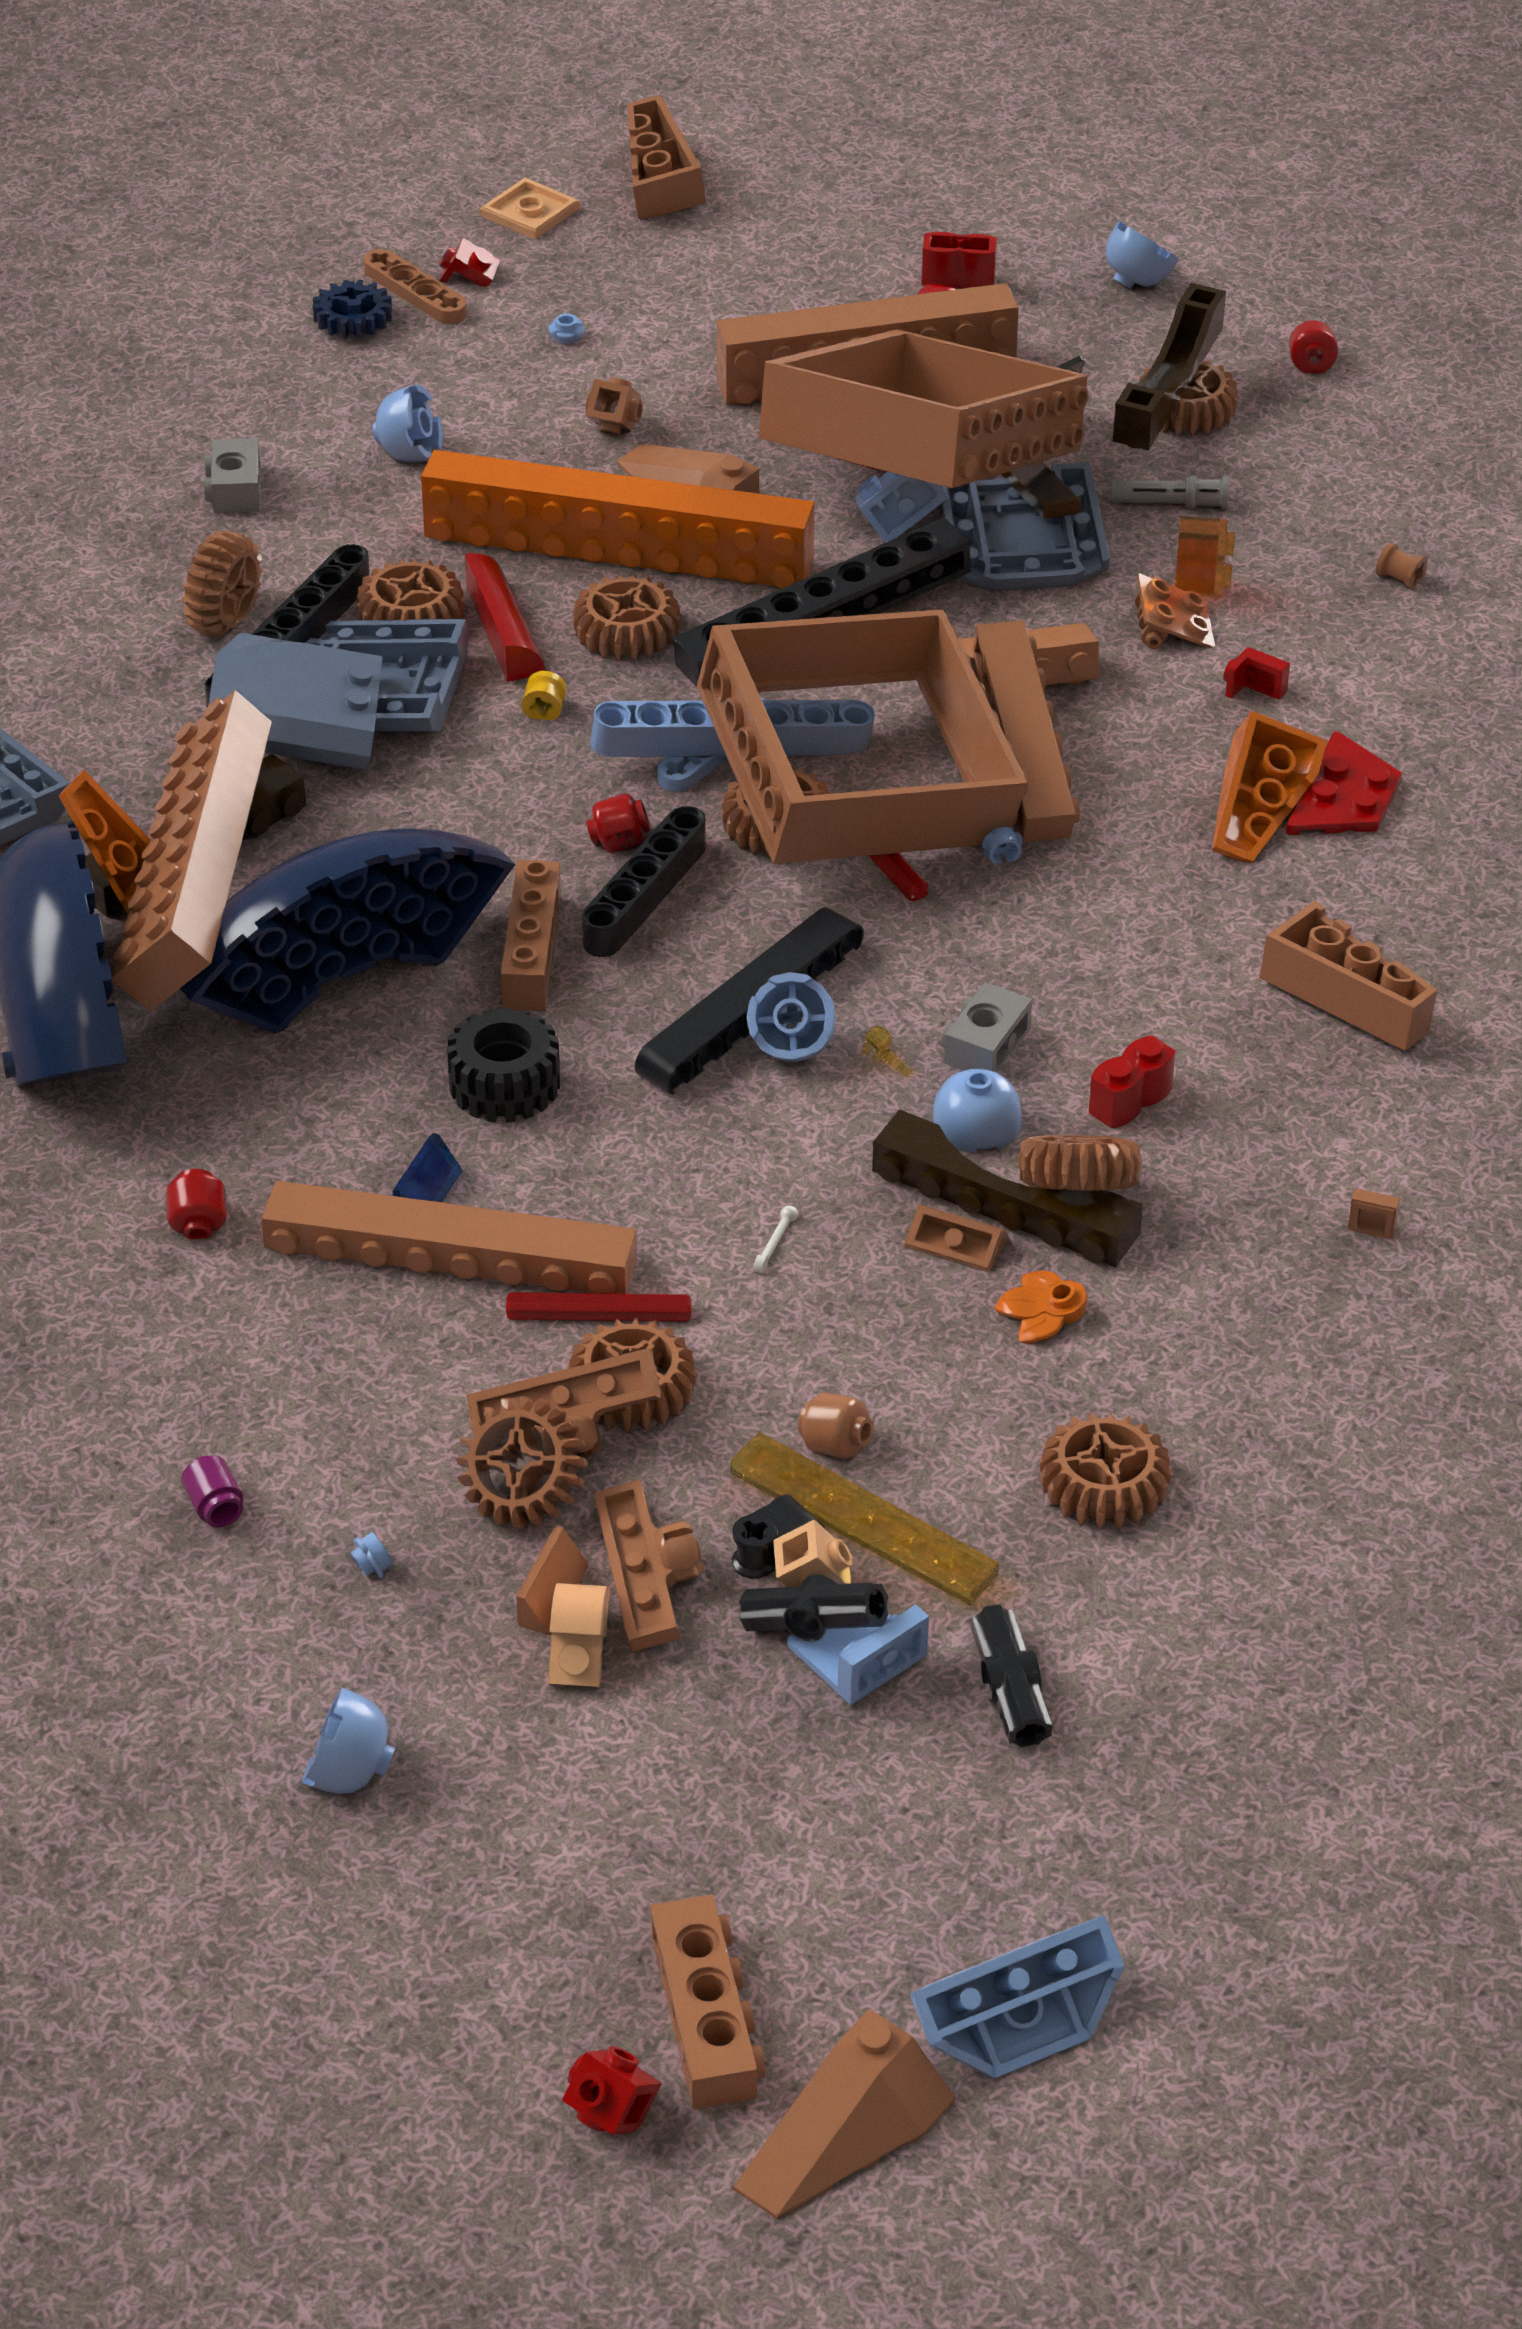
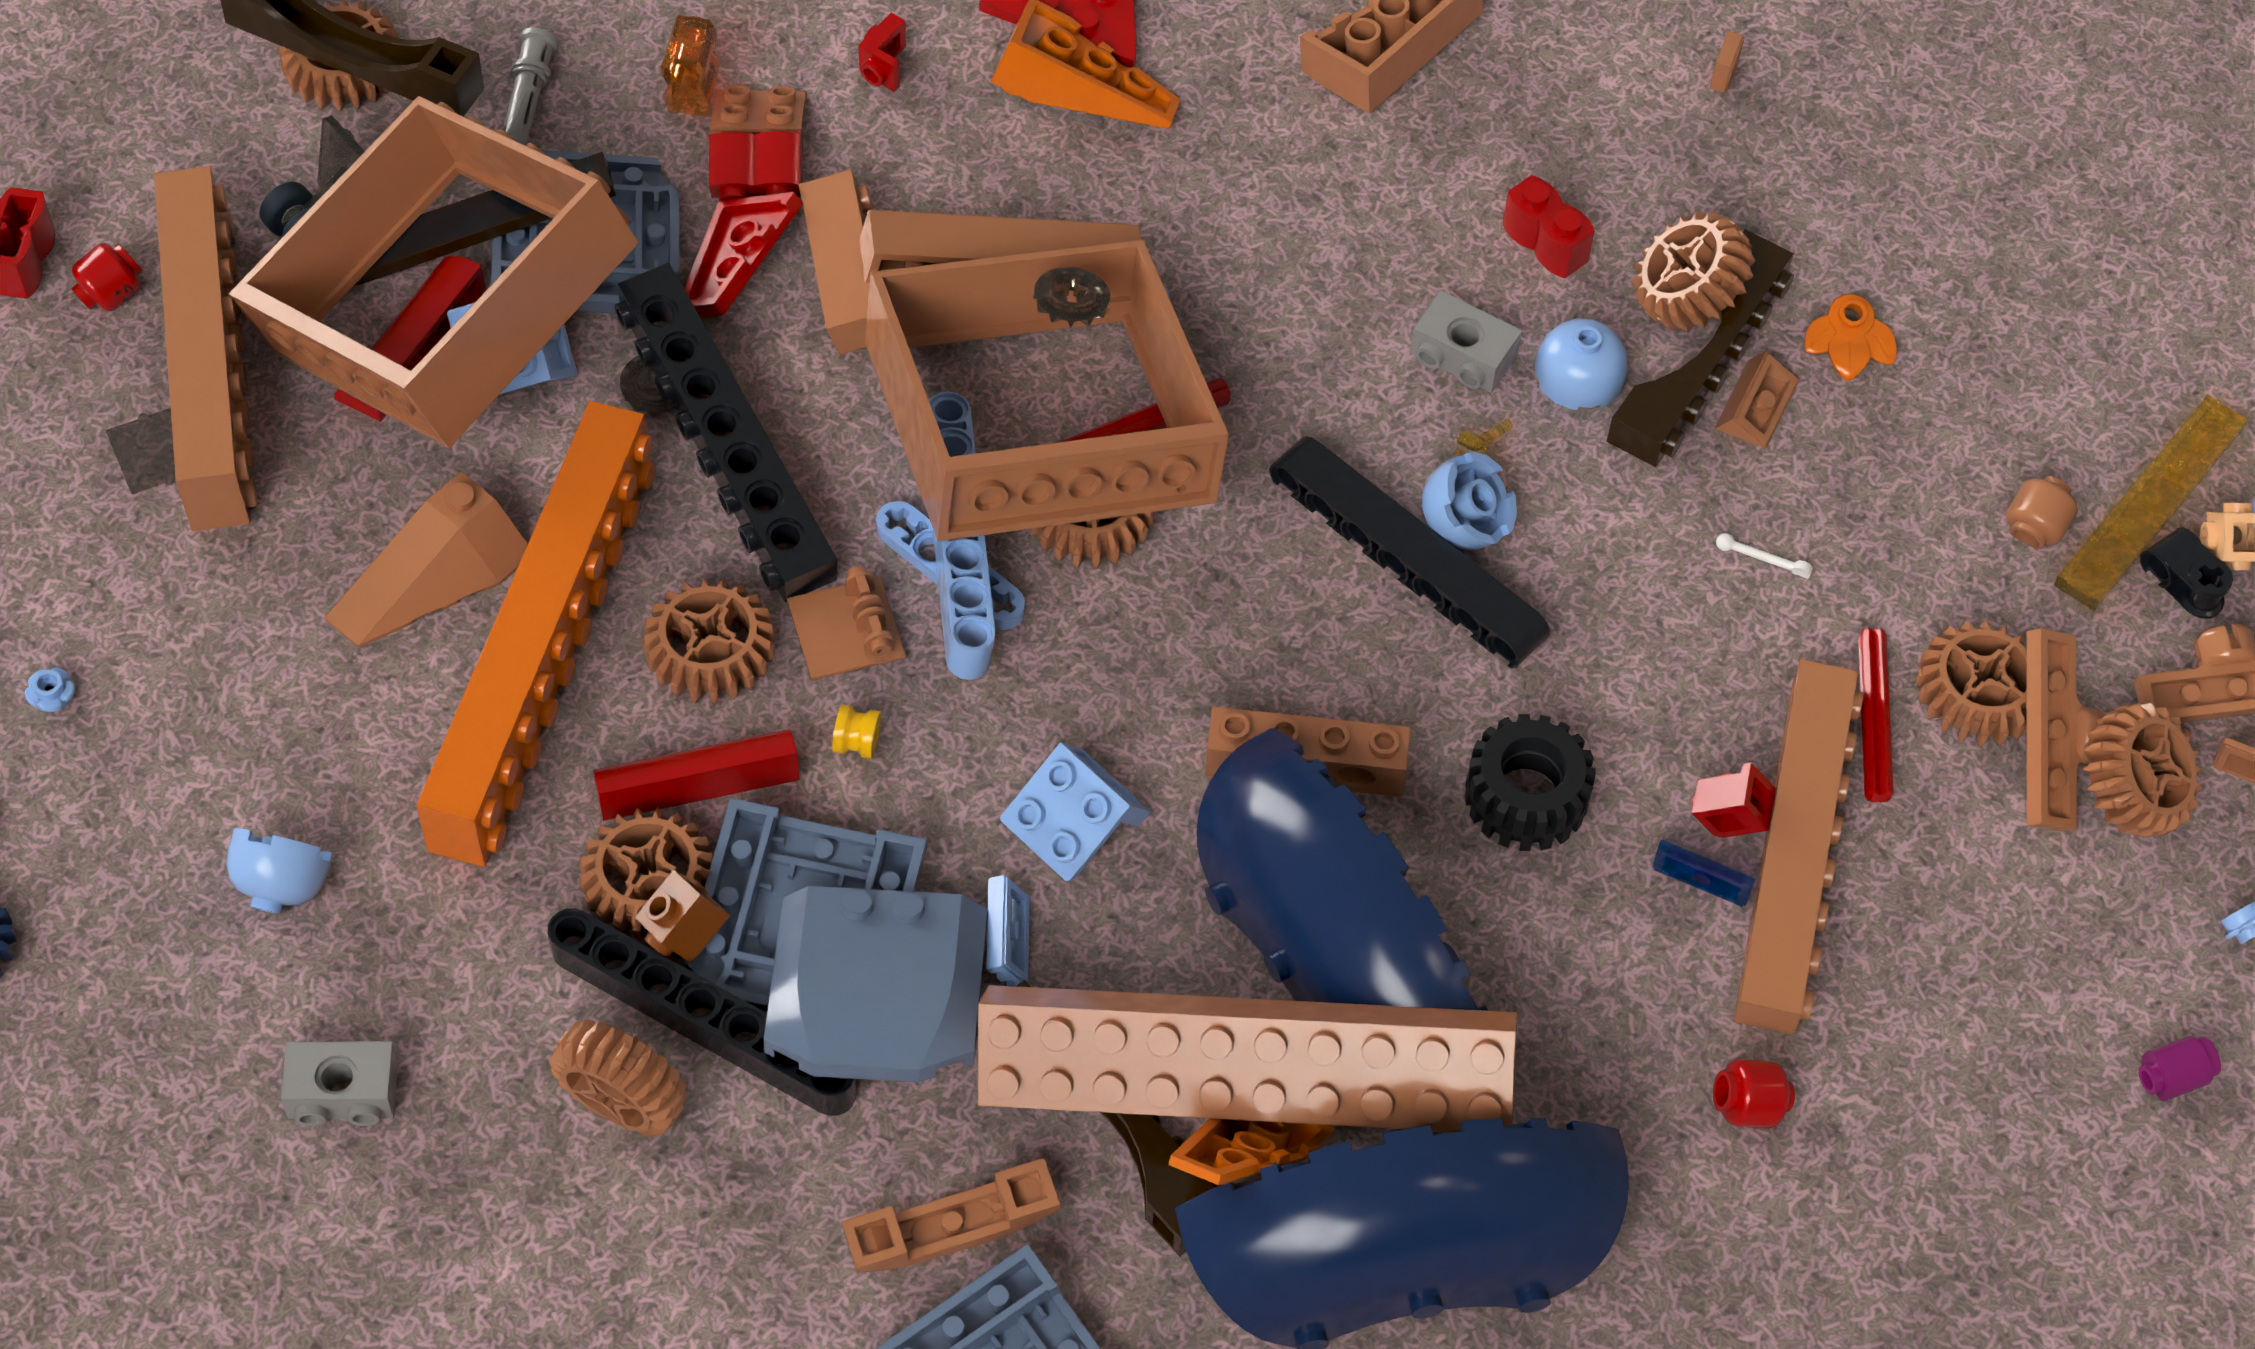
camera: 90 degrees left, 15 degrees up
(103, 757) = (952, 1223): none -> nougat slope
(357, 599) = (681, 917): none -> dark orange brick
(358, 764) = (1007, 931): none -> light blue tile
(485, 1186) = (1734, 802): none -> red brick
(486, 811) = (1071, 810): none -> light blue bracket
(606, 397) = (268, 631): nougat brick -> none
(618, 823) = (1105, 661): red head -> none
(644, 881) = (1199, 621): black beam -> none
(650, 683) = (846, 626): none -> nougat hinge
(951, 718) = (1088, 288): none -> clear smoke gear
(1012, 603) = (735, 247): none -> red wing
(1105, 1470) = (2069, 313): nougat gear -> none
(1109, 608) = (754, 164): none -> red brick
(1137, 258) = (52, 63): light blue cylinder -> none

